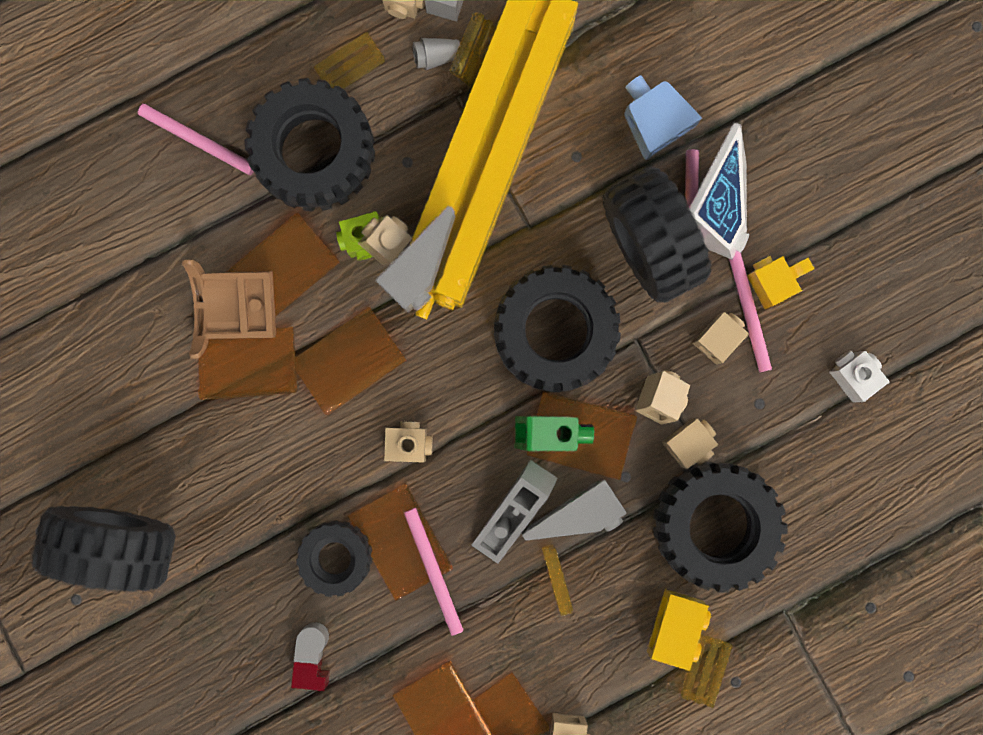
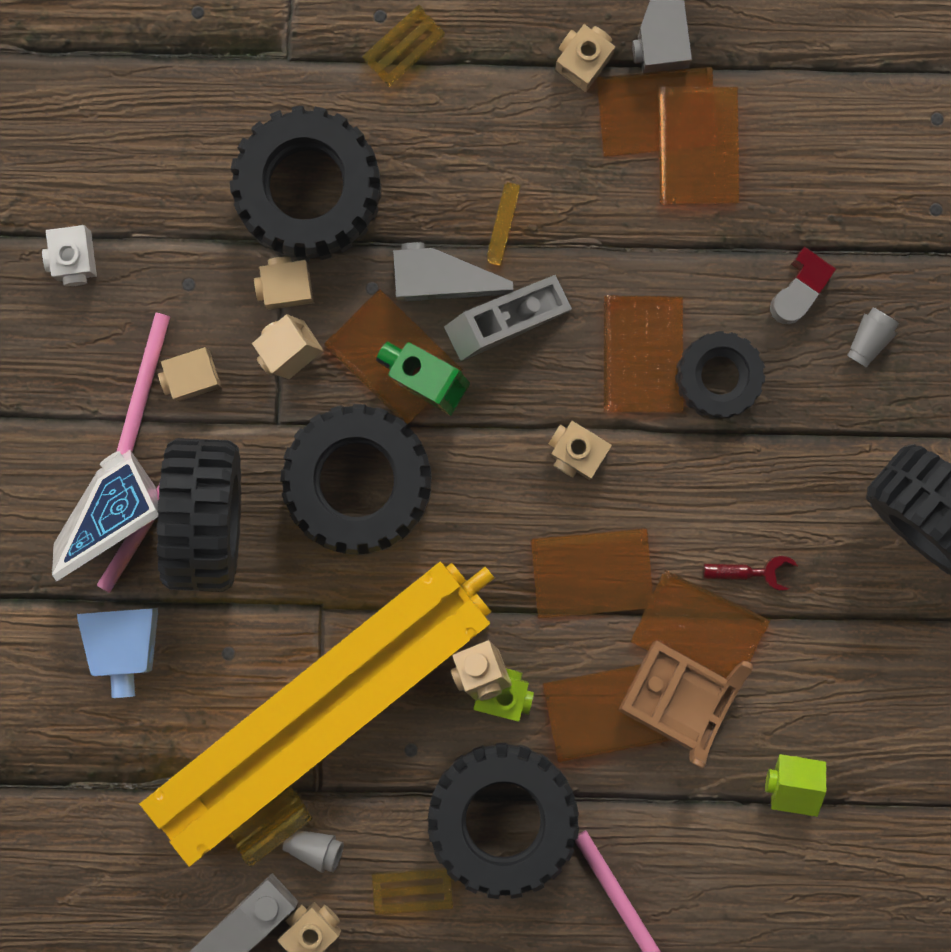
camera: 150 degrees left, 0 degrees up
(112, 291) = (797, 785): none -> lime brick
(237, 424) = (744, 572): none -> dark red piece
(238, 651) = (872, 336): none -> light grey cone
(416, 268) = (466, 617): light grey slope -> none
(433, 571) = (625, 304): bright pink bar -> none
(678, 630) = (408, 103): yellow brick -> none
(776, 280) = (98, 401): yellow brick -> none

